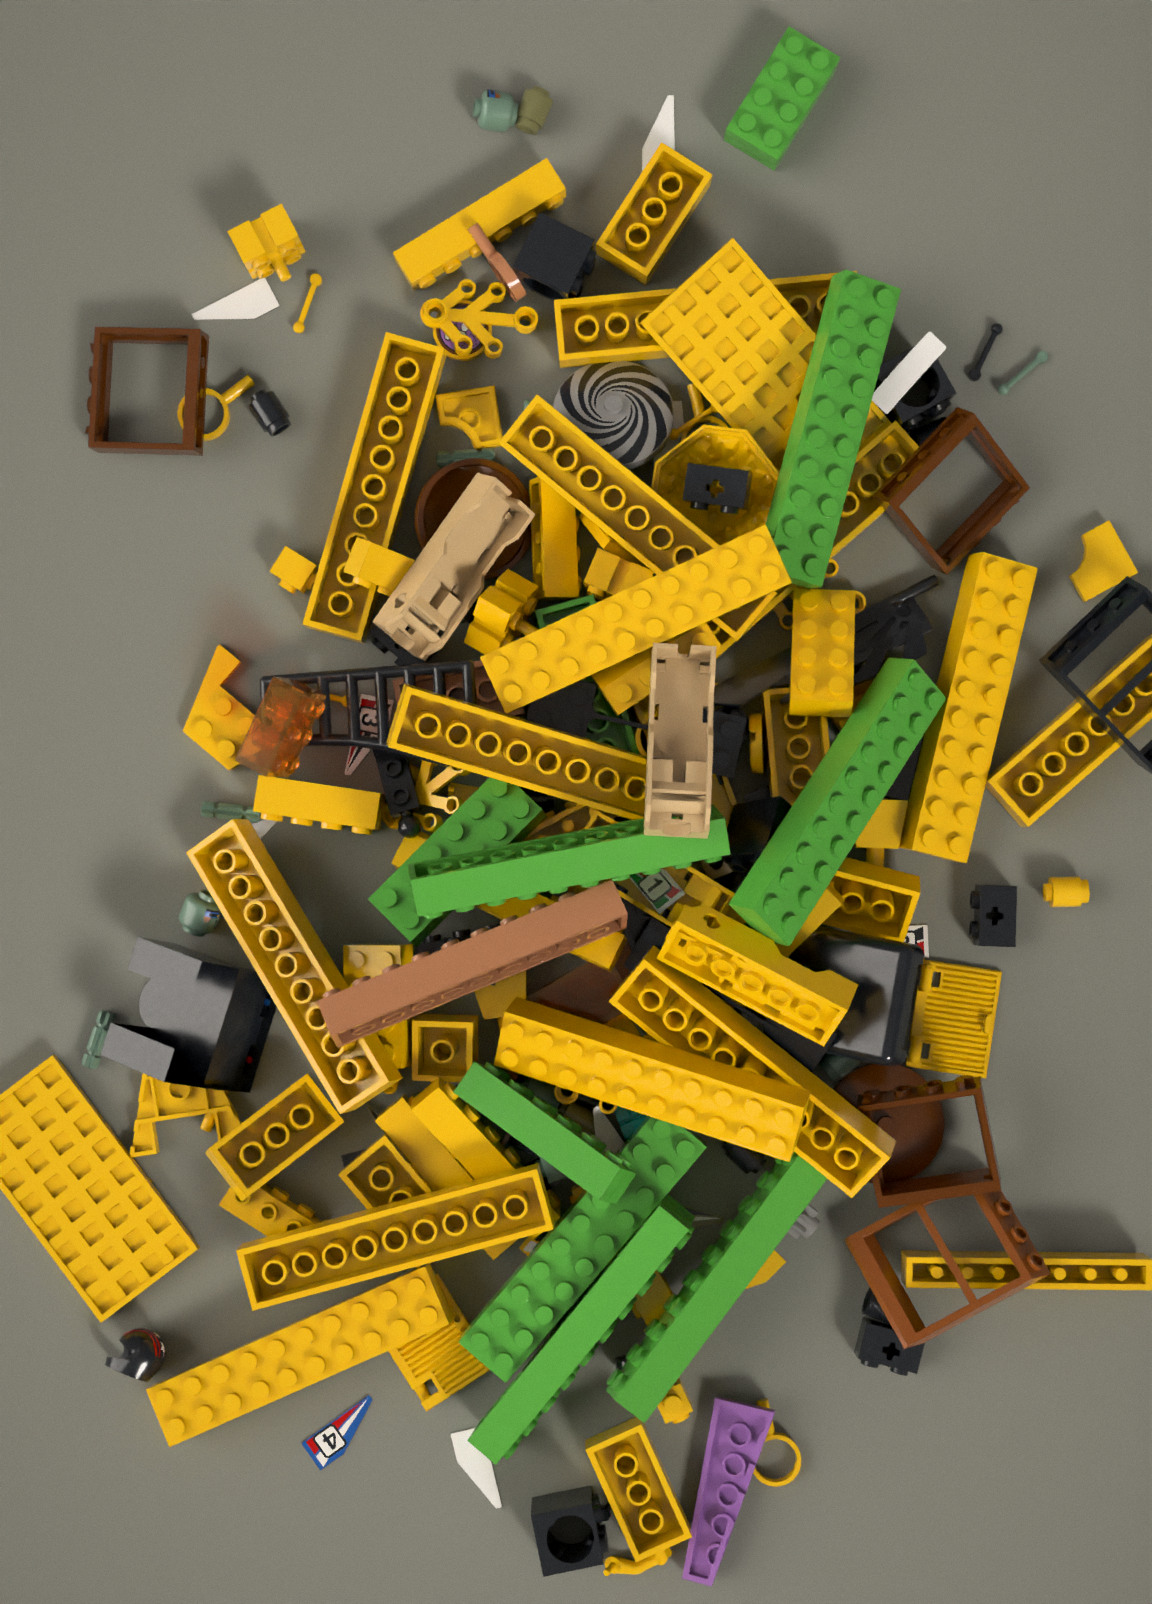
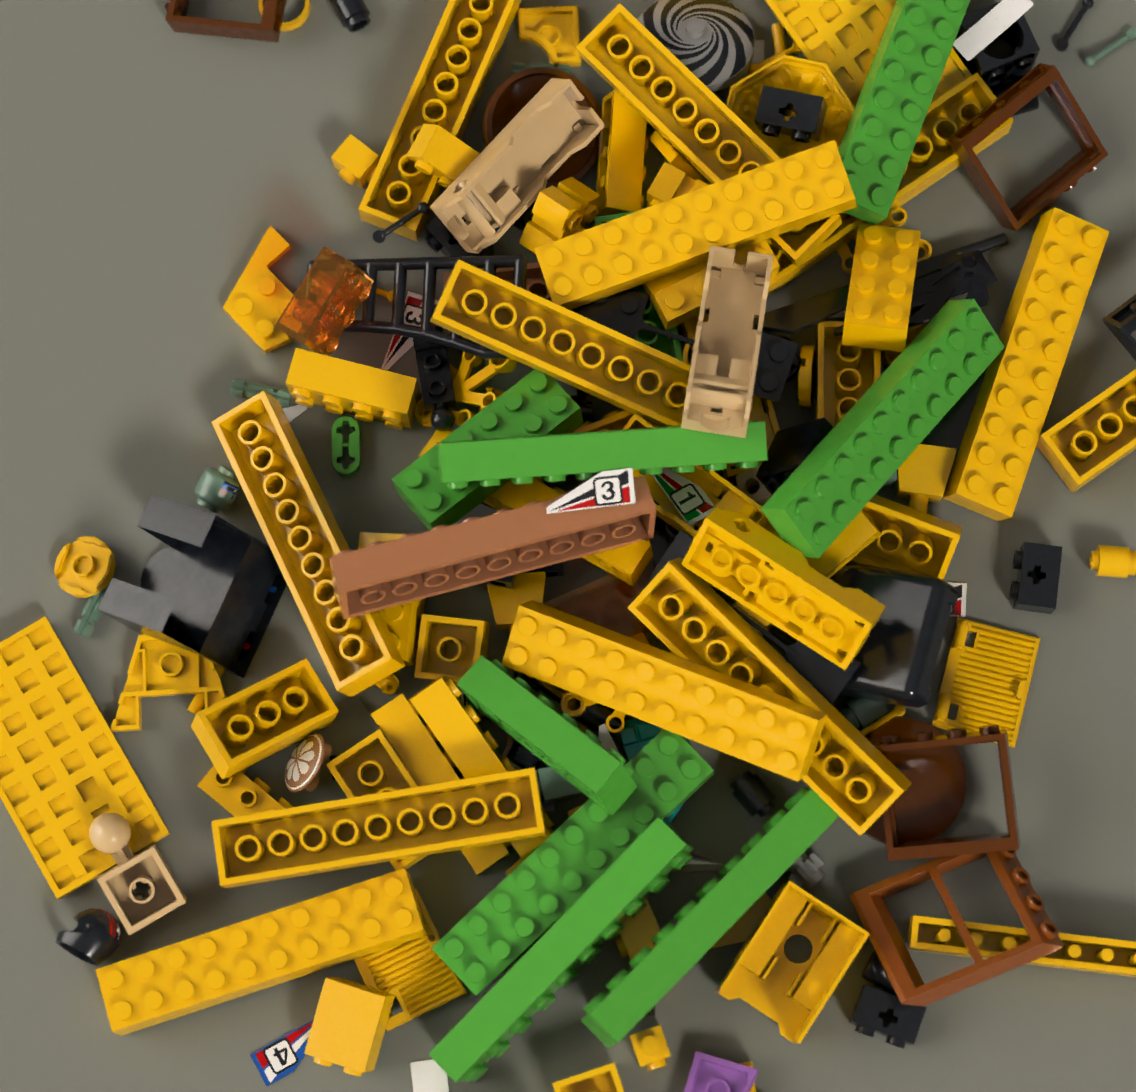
camera: 10 degrees right, 10 degrees down
(83, 1002) = (85, 567): none -> yellow tile
(179, 1288) = (111, 835): none -> tan brick
(312, 856) = (339, 446): none -> bright green beam
(319, 1171) = (305, 763): none -> medium nougat dish
(326, 650) = (380, 236): none -> black hinge
(390, 1412) = (349, 1025): none -> yellow brick
(571, 904) = (602, 490): none -> sticker
(795, 1333) = (789, 990): none -> yellow piece
(839, 1087) = (898, 710): none -> yellow hinge

